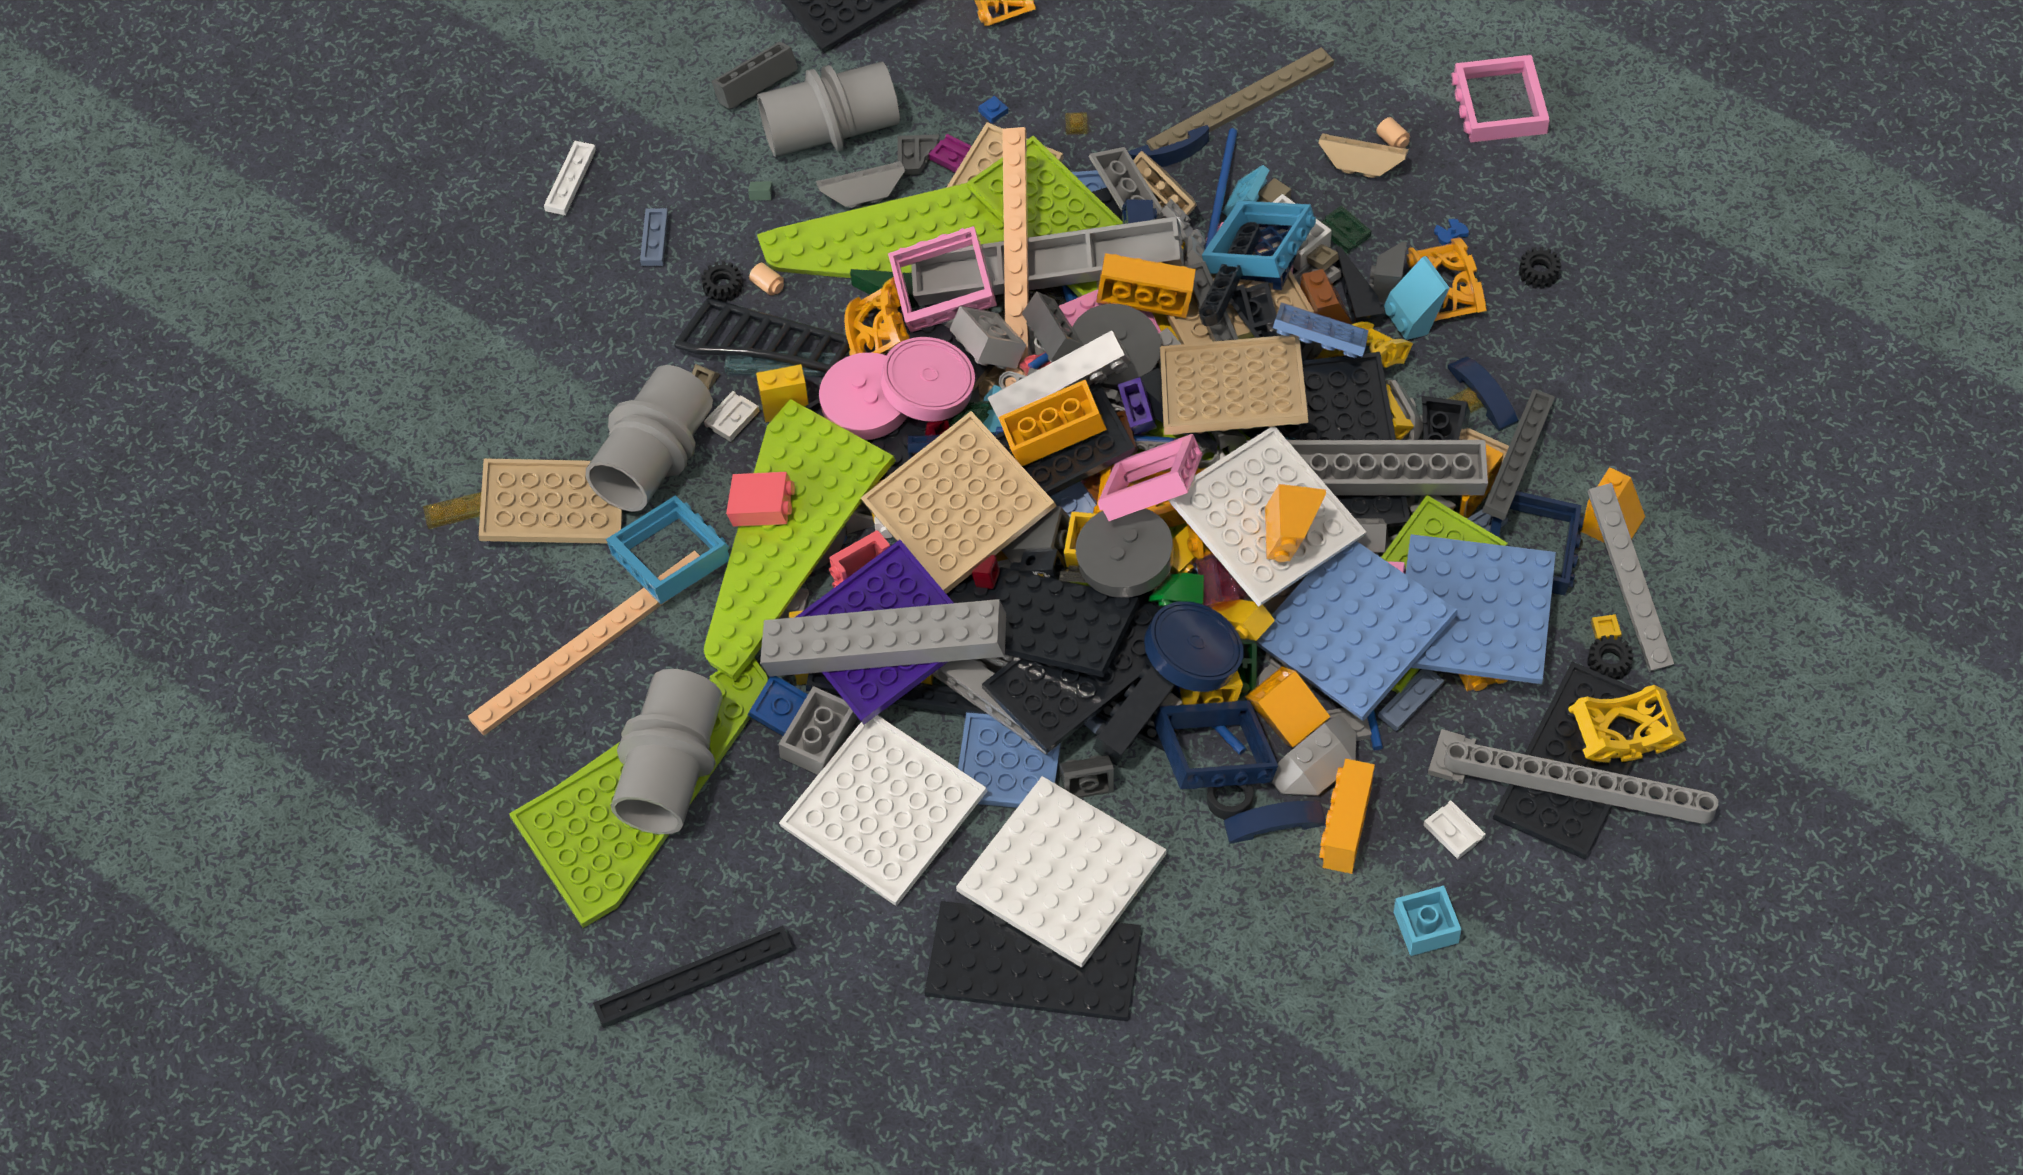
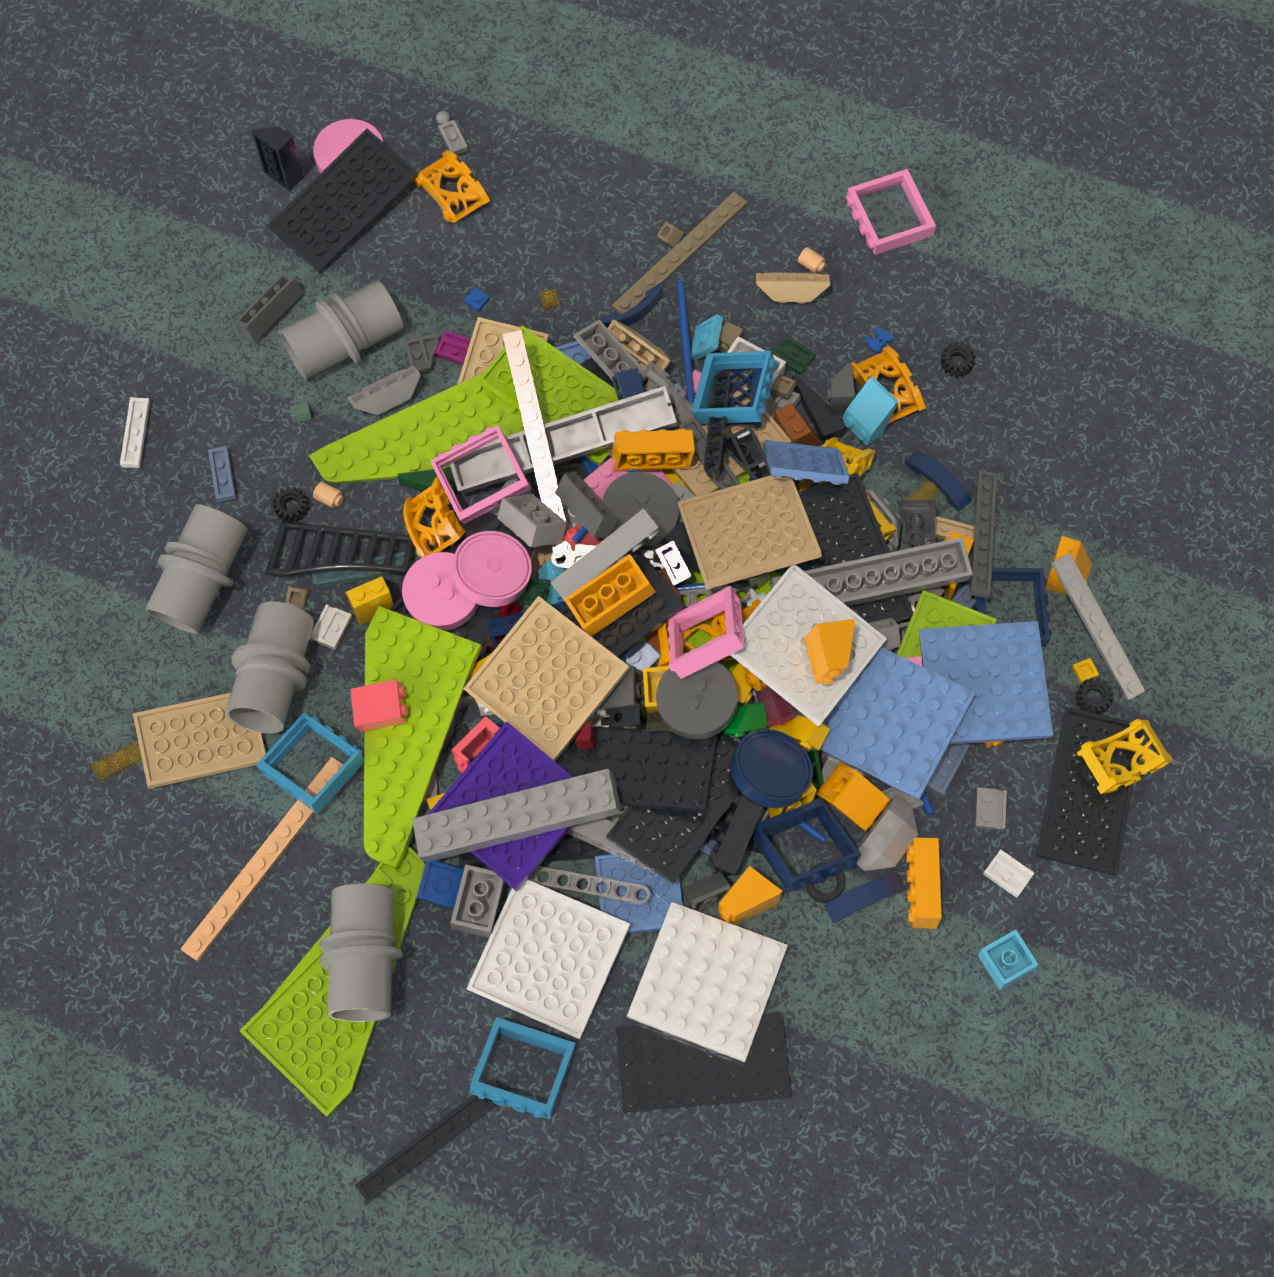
camera: 15 degrees left, 10 degrees up
(595, 321) = (196, 568): none -> light grey piece
(836, 887) = (534, 1038): none -> dark azure window
(956, 738) = (591, 889): none -> light grey beam
(1134, 789) = (748, 898): none -> light orange slope
(1234, 79) = (670, 234): none -> dark tan slope
(1592, 779) = (1107, 808): light grey beam -> none

